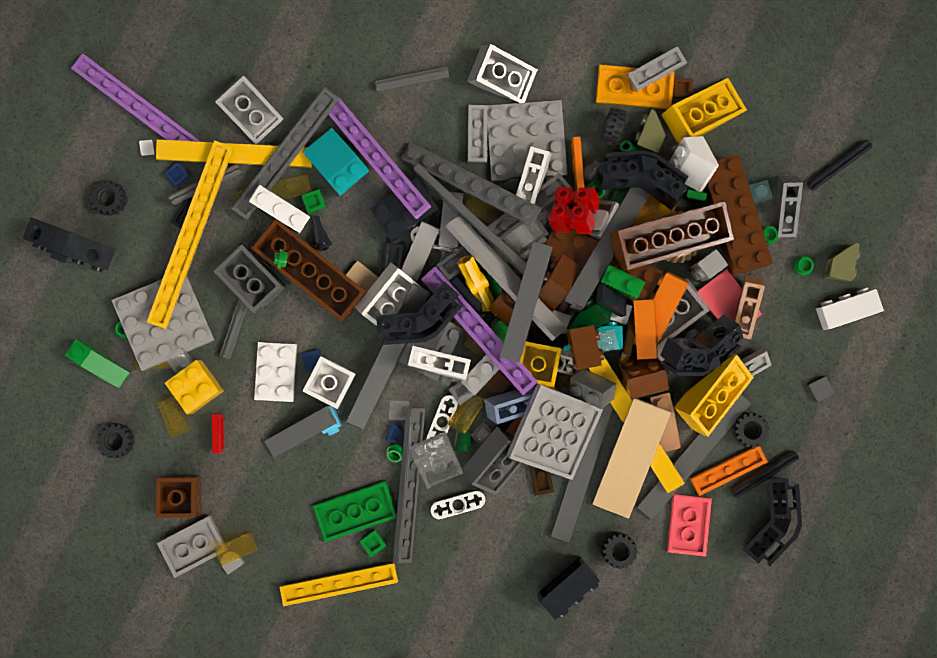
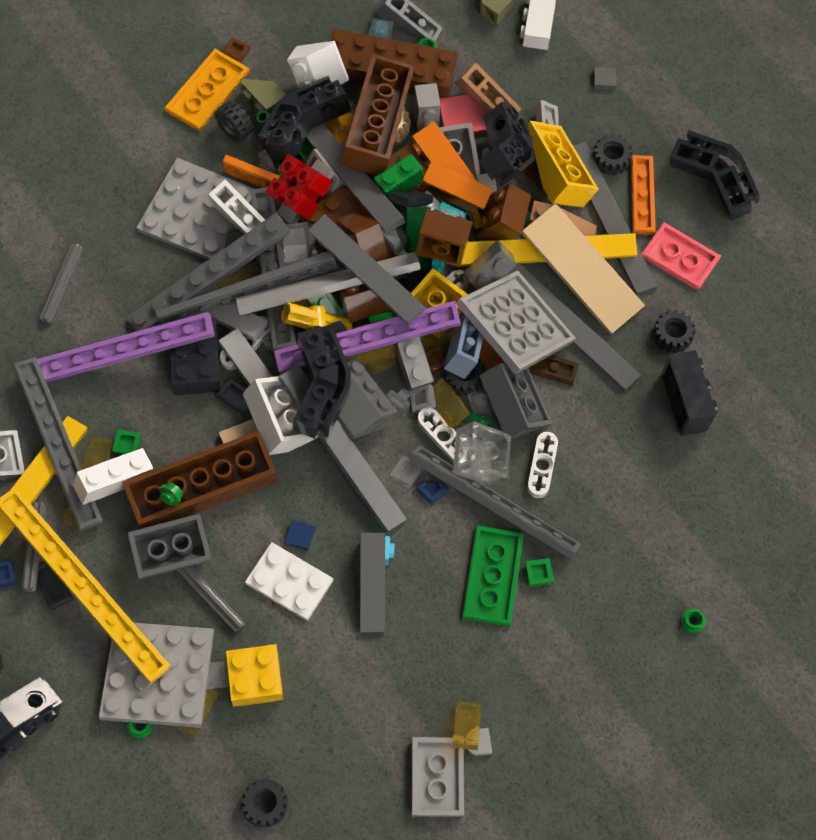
camera: 65 degrees left, 20 degrees down
(97, 362) = (161, 775): slope -> none
(173, 417) = (274, 722): clear yellow tile -> none
(178, 496) = (370, 757): reddish brown brick -> none
(217, 433) = (322, 677): red tile -> none
(321, 239) = (166, 455): black cone -> none
(329, 382) = (336, 521): white brick -> none
(336, 162) = (100, 396): teal slope -> none
(338, 584) = (566, 634): yellow plate -> none
(394, 452) = (456, 500): green plate -> none
(439, 363) = (382, 386): white slope -> none
(477, 134) = (160, 249): light grey plate -> none
(502, 74) = (113, 197): light grey slope -> none
(657, 69) = (203, 59): light grey plate -> none
(695, 195) = (351, 86): green tile -> none
(703, 111) = (270, 44): yellow slope -> none
(764, 474) = (664, 165): black axle -> none
(803, 265) = (474, 34): green plate -> none

